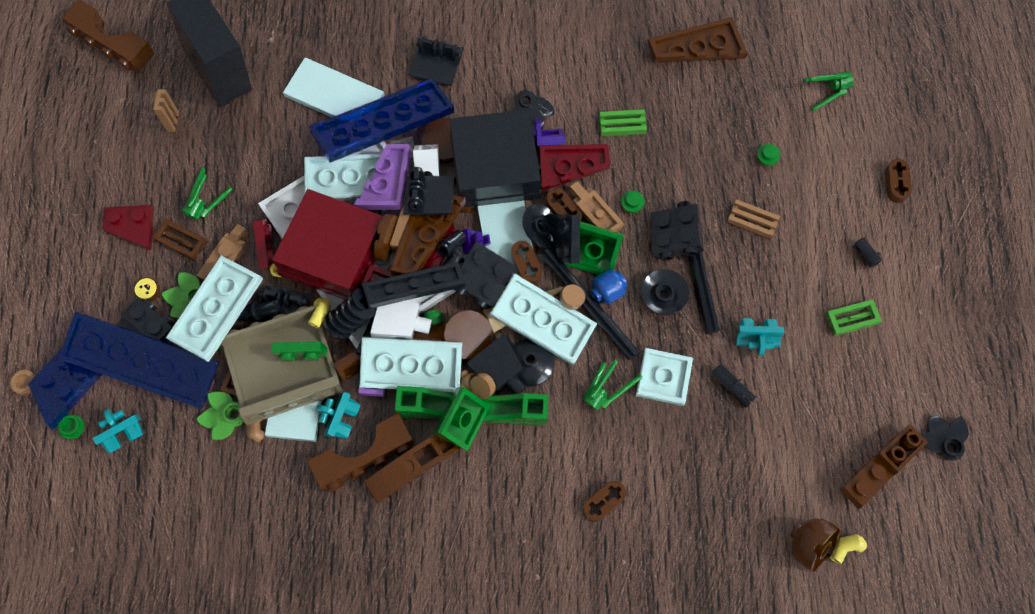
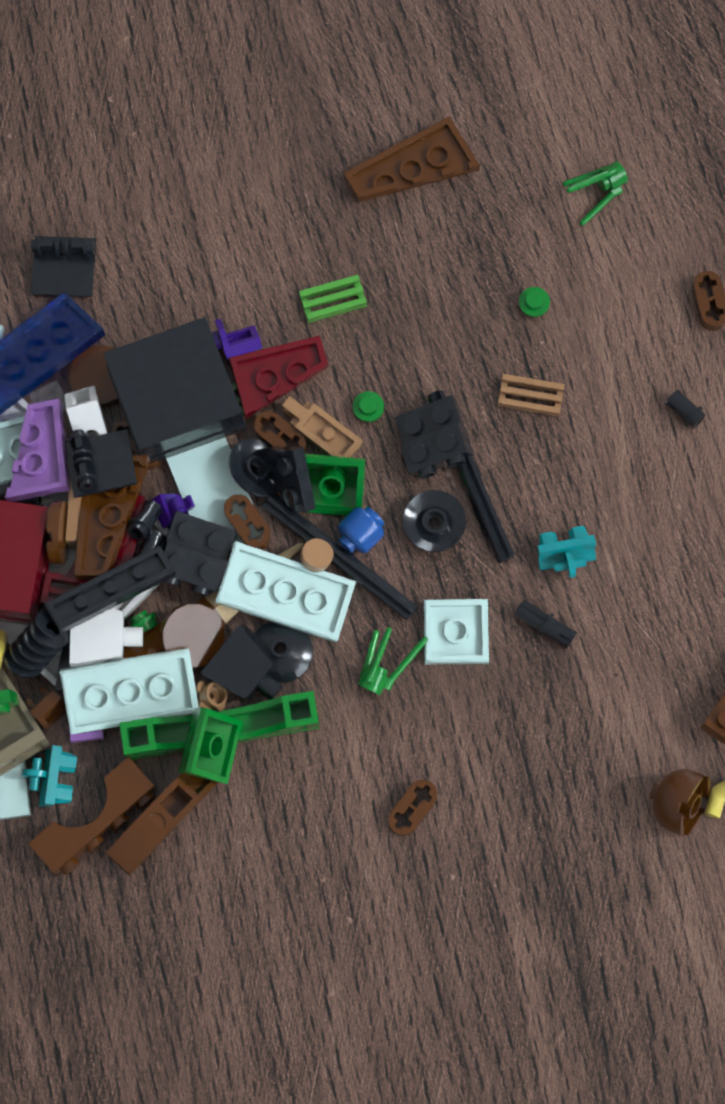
camera: 10 degrees left, 5 degrees up
(482, 386) = (227, 697): medium nougat tile -> none
(538, 106) = (213, 307): black plate -> none
(857, 326) = (659, 512): bright green tile -> none

